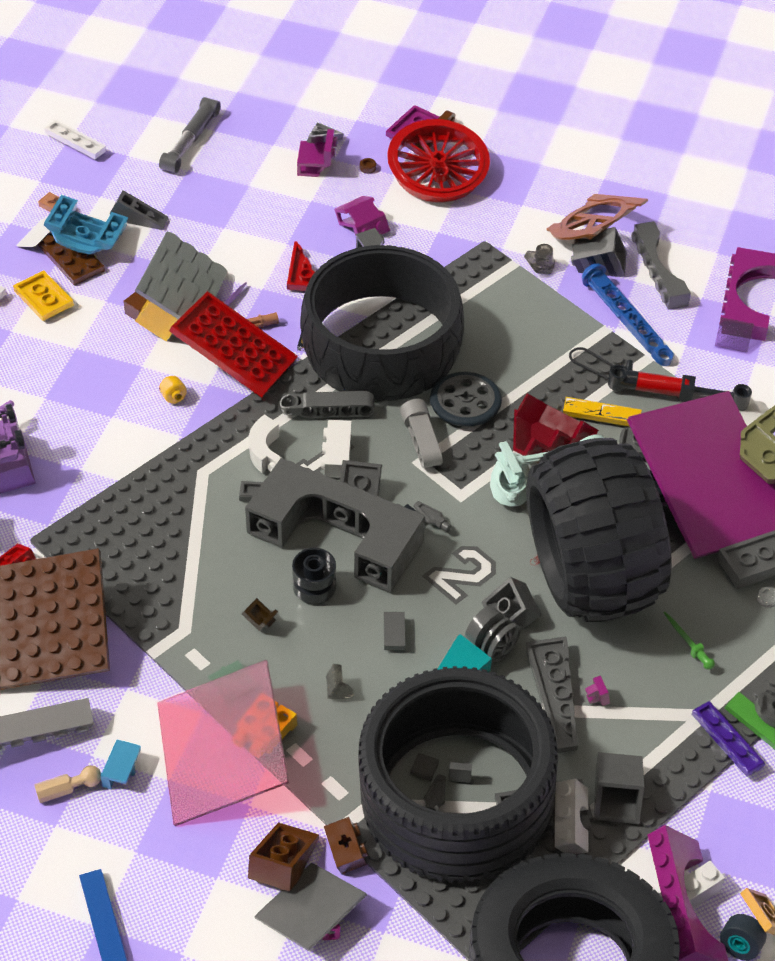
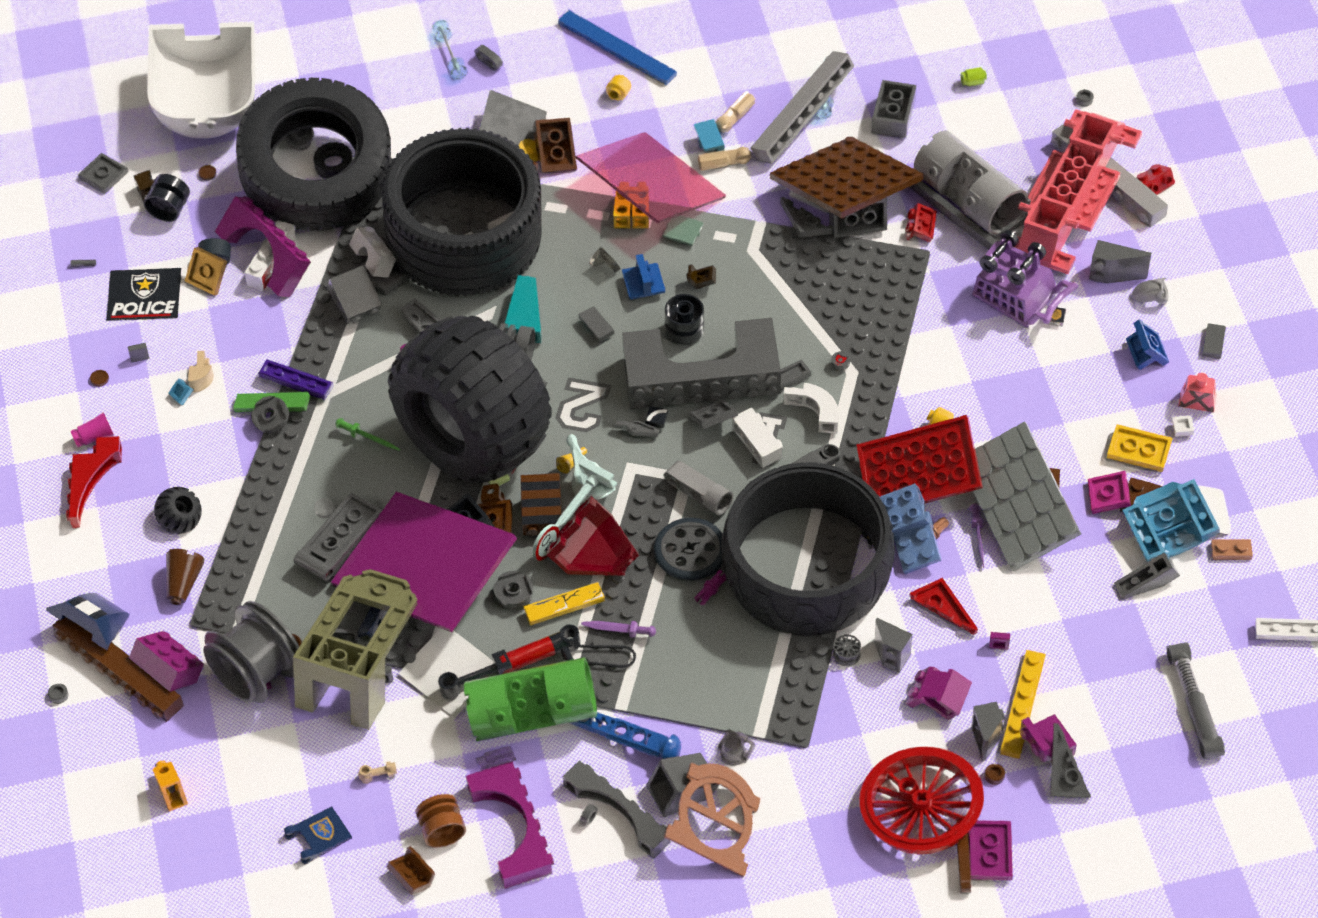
camera: 150 degrees right, 5 degrees up
(101, 277) = (1109, 492): none -> dark pink tile
(105, 731) = (724, 158): none -> tan piece
(118, 616) = (803, 221): none -> dark grey wing
(159, 887) = (618, 87): none -> yellow head
(206, 478) = (840, 360): none -> dark grey tile
(280, 315) = (911, 528): none -> medium blue piece
(285, 228) = (999, 640): none -> magenta tile
(306, 192) = (1022, 702): none -> yellow plate
(313, 872) = (529, 147): none -> yellow piece
(316, 644) = (643, 279): none -> blue bracket
(352, 175) = (987, 727): none -> dark grey slope
(473, 361) = (710, 587): none -> magenta pin
(517, 516) = (565, 462): none -> yellow cone
(559, 365) = (632, 629): none -> medium lavender sword
(654, 322) = (530, 699): none -> bright green cylinder
(684, 271) = (588, 814): none -> dark grey tile

